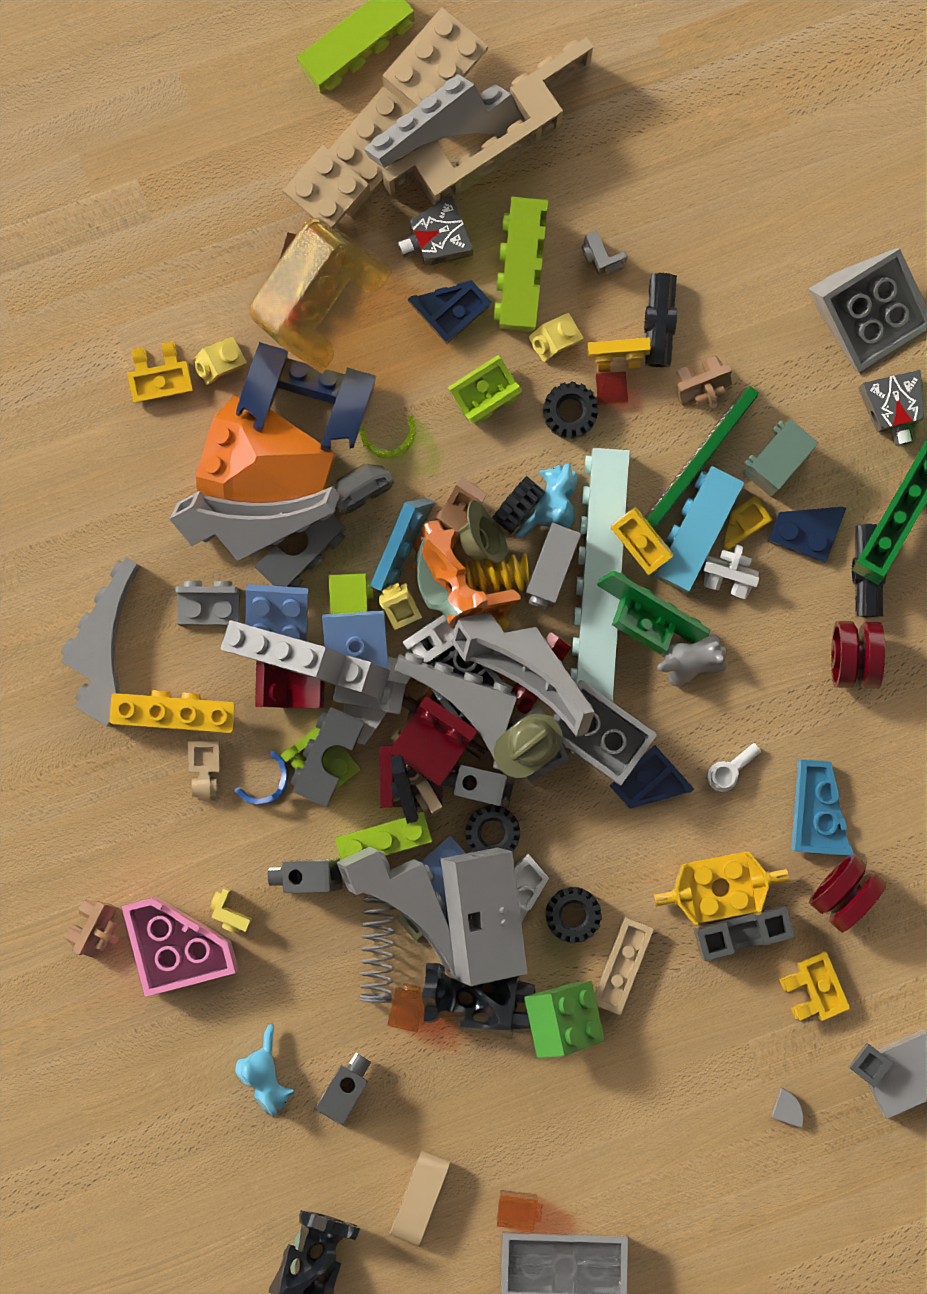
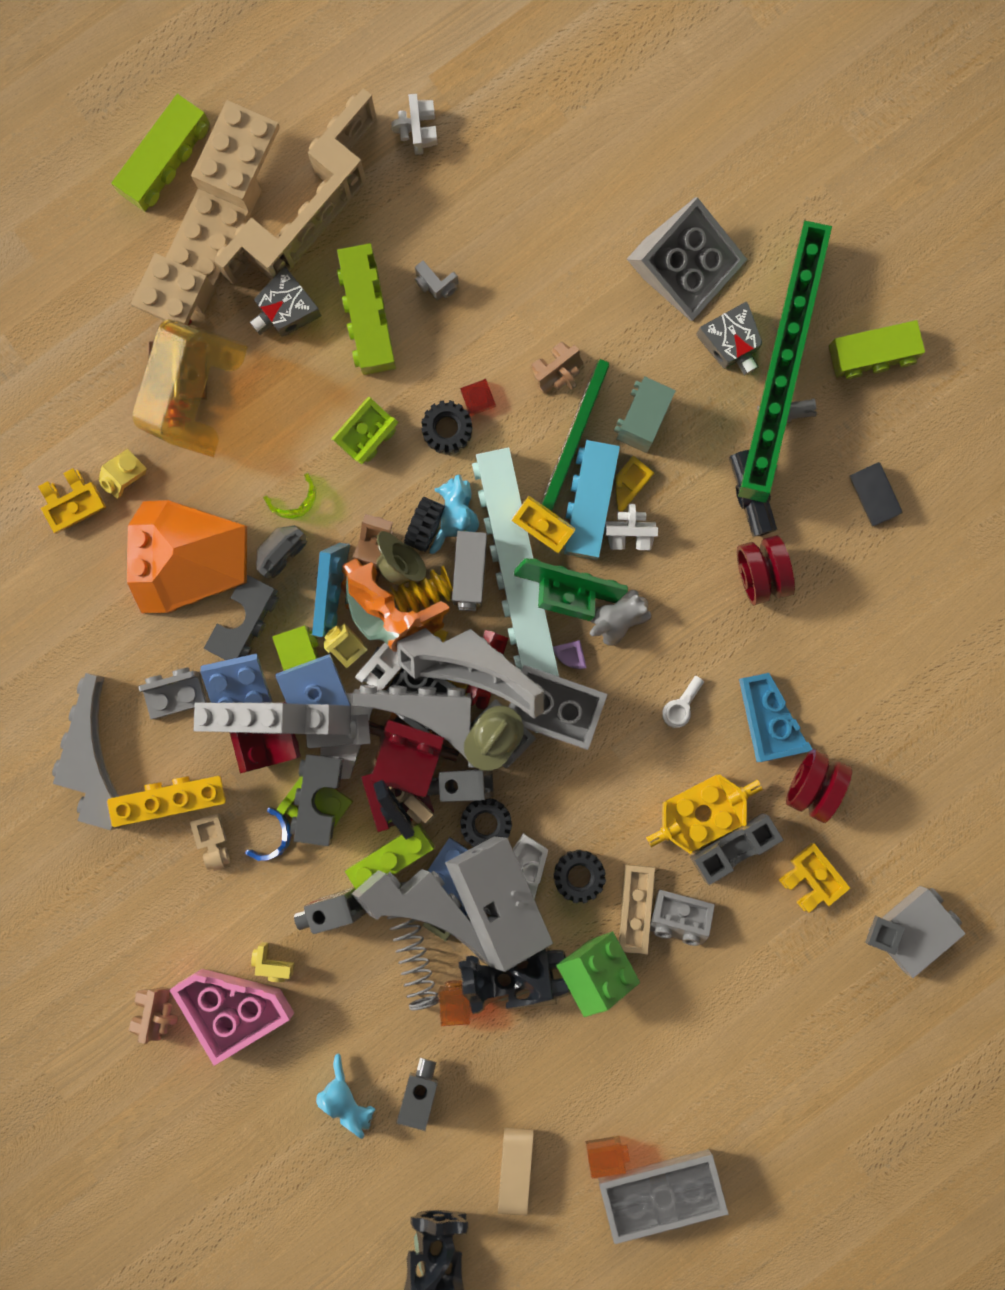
camera: 15 degrees left, 0 degrees up
(249, 526) = (186, 613): light grey arch -> none
(274, 370) = (171, 468): dark blue wedge -> none
(446, 113) = (258, 190): light grey arch -> none
(451, 308) = (314, 368): dark blue wing -> none
(555, 336) = (414, 366): light yellow bracket -> none
(606, 351) = (484, 356): yellow plate -> none
(630, 683) = (570, 655): none -> lavender tile
(637, 71) = (419, 111): none -> white hips
(651, 781) = (614, 736): dark blue wing -> none
(661, 319) = (503, 324): black piece -> none
(666, 989) = (681, 918): none -> light grey bracket
(787, 1109) = (820, 993): light grey tile -> none
(808, 531) = (688, 473): dark blue wing -> none

